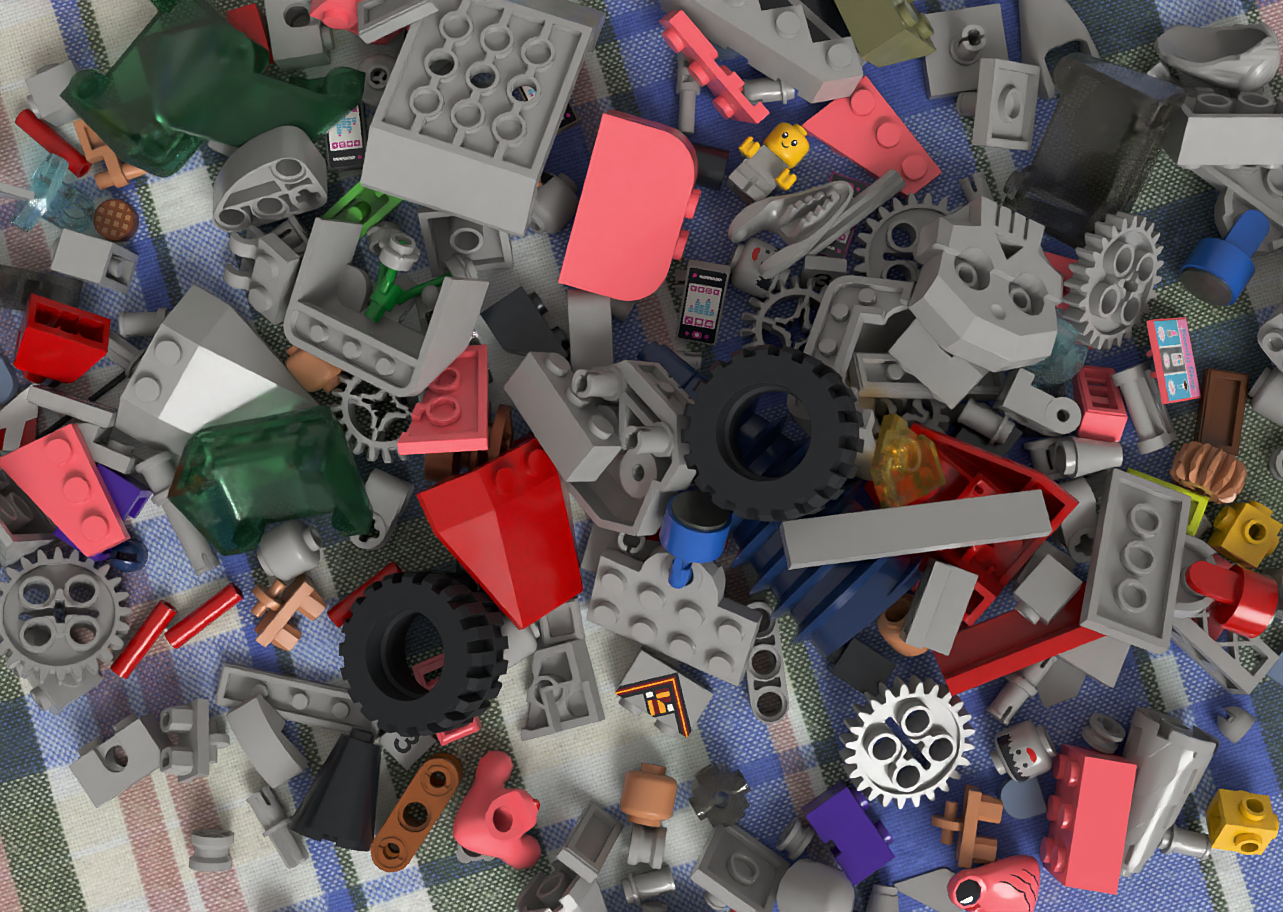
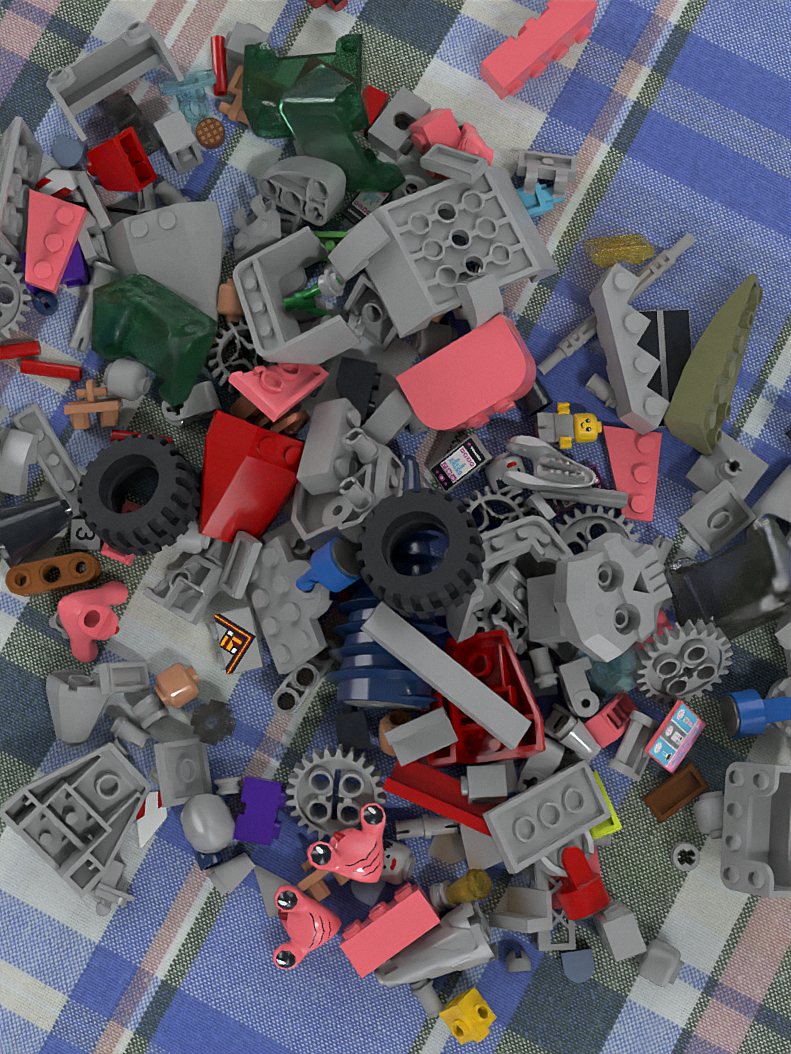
camera: 45 degrees right, 5 degrees down
(389, 187) = (358, 246): none -> light grey slope
(567, 120) = (479, 299): none -> light grey brick
(590, 618) = (239, 564): none -> light grey tile
(725, 85) = (583, 318): coral wing -> none
(904, 464) = (475, 641): clear yellow plate -> none
(984, 781) = (353, 851): none -> coral head
(1125, 702) = (470, 887): none -> clear yellow cone
(1201, 669) = (528, 911): none -> light grey panel
(1208, 472) = (634, 813): nougat gear -> none
(1245, 533) = (612, 862): yellow brick -> none

